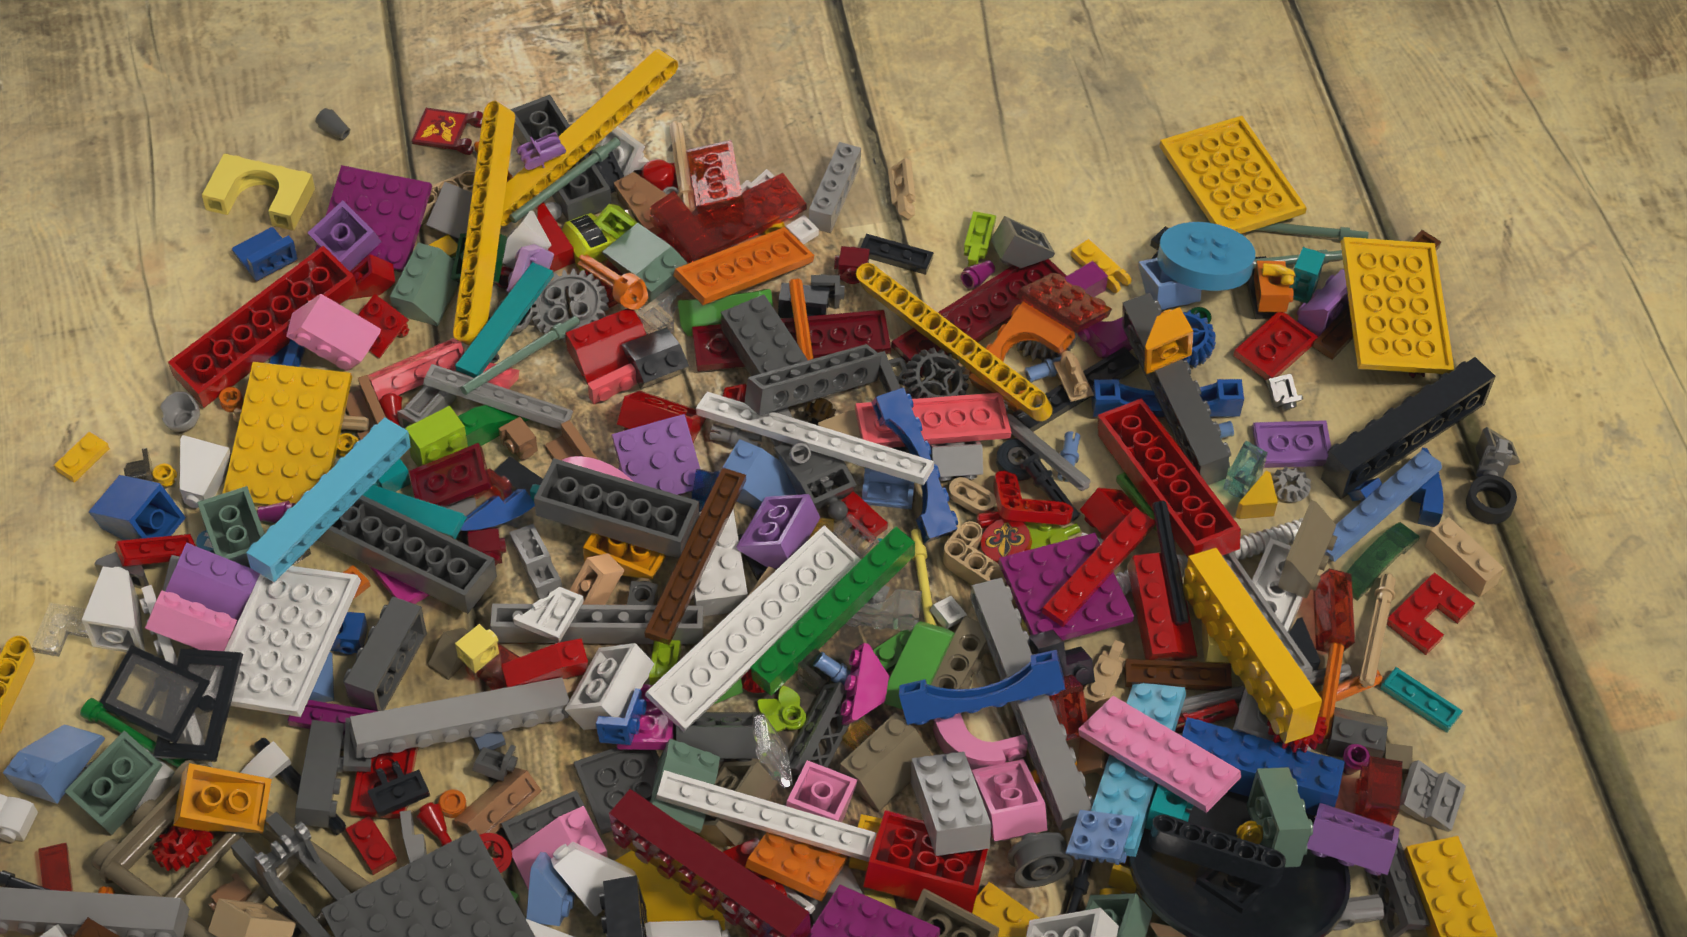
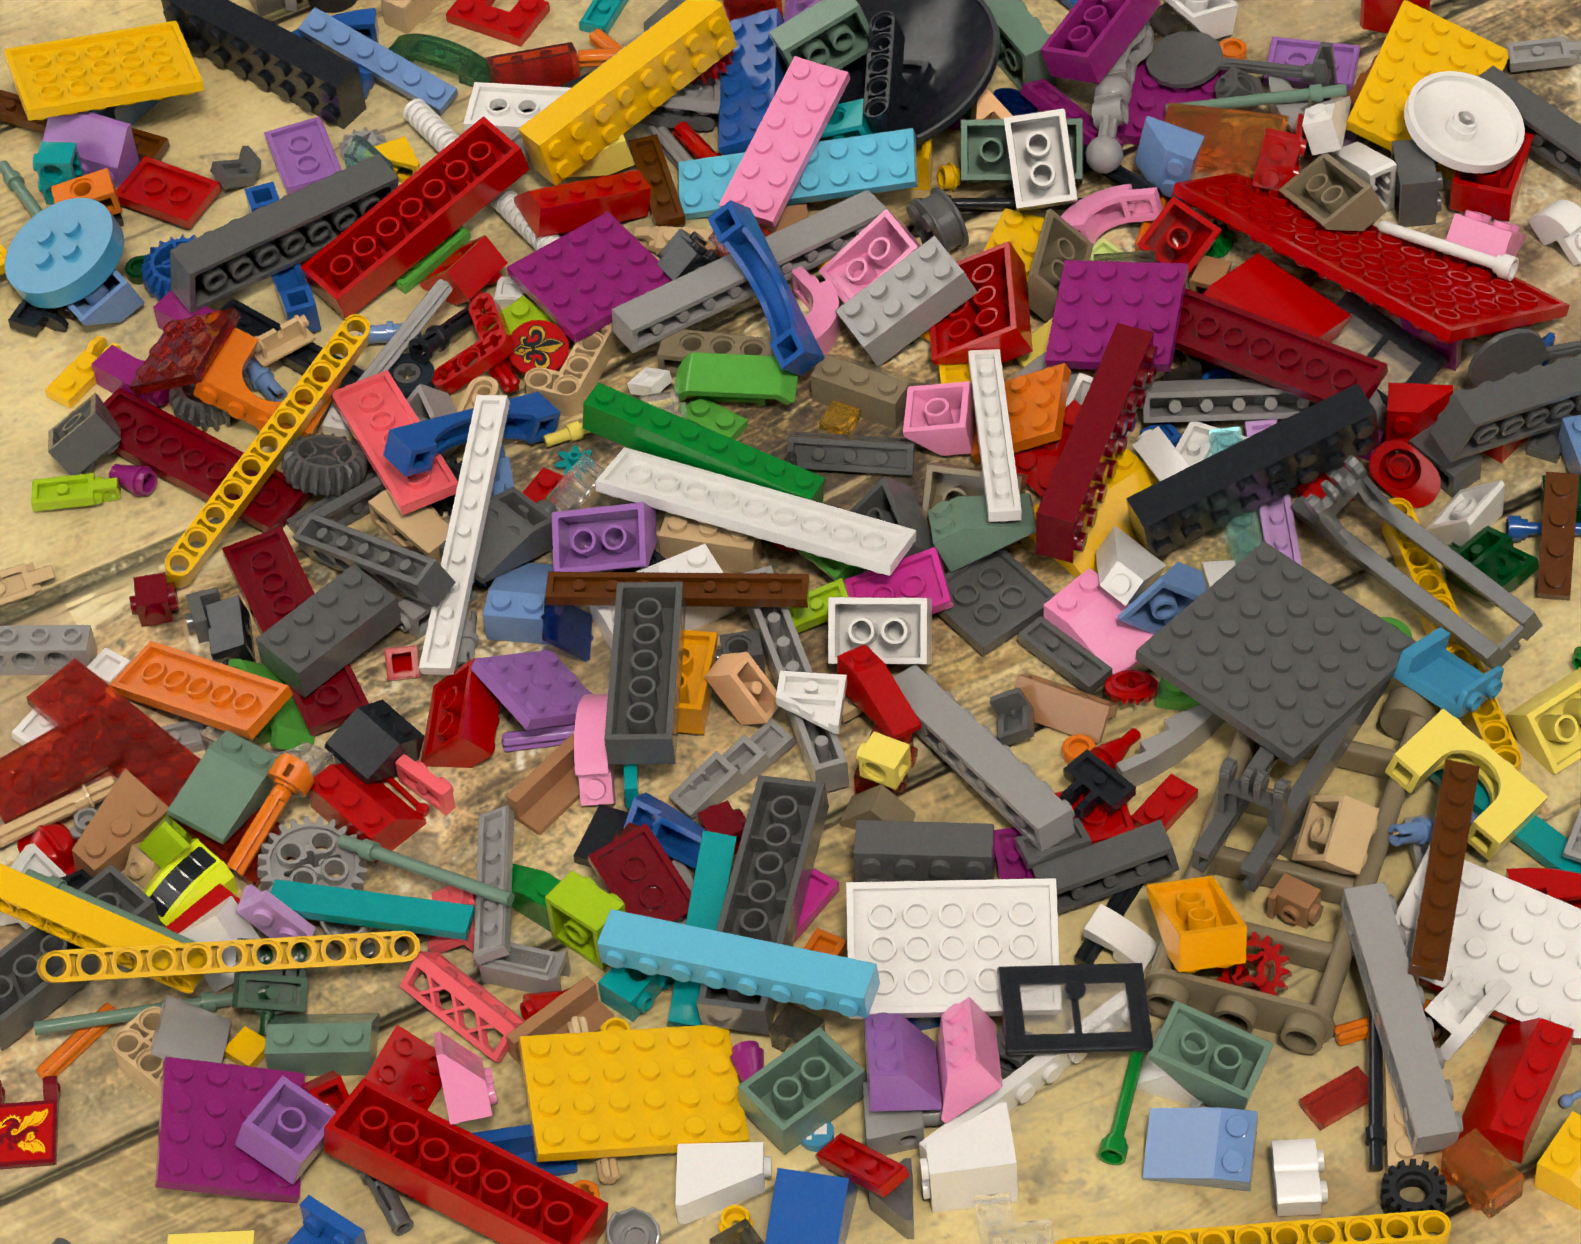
camera: 100 degrees left, 5 degrees down
(154, 694) = (1074, 1071): clear door -> none
(518, 438) = (545, 848): medium nougat brick -> none
(540, 151) = (92, 918): medium lavender arm -> none
(622, 730) = (930, 582): blue bracket -> none
(682, 228) = (167, 756): clear red brick -> none
(772, 751) = (916, 451): clear plate -> none
(780, 709) = (841, 489): lime plate -> none
(800, 317) = (260, 613): orange axle -> none
(802, 458) = (493, 537): light grey hinge -> none
(836, 671) = (774, 441): medium blue pin -> none
(865, 684) = (787, 413): dark pink slope -> none
(898, 254) = (117, 570): black tile -> none
(1098, 567) = (560, 241): red plate -> none
(1100, 837) = (906, 161): medium blue hinge -> none
(1168, 340) = (252, 205): light orange slope -> none
(1170, 563) = (535, 180): black axle -> none
(1255, 836) = (846, 63): yellow plate -> none
(1279, 271) = (75, 177): yellow arm -> none
(1308, 552) = (483, 79): dark tan slope -> none
(1384, 595) = (499, 44): tan axle -> none

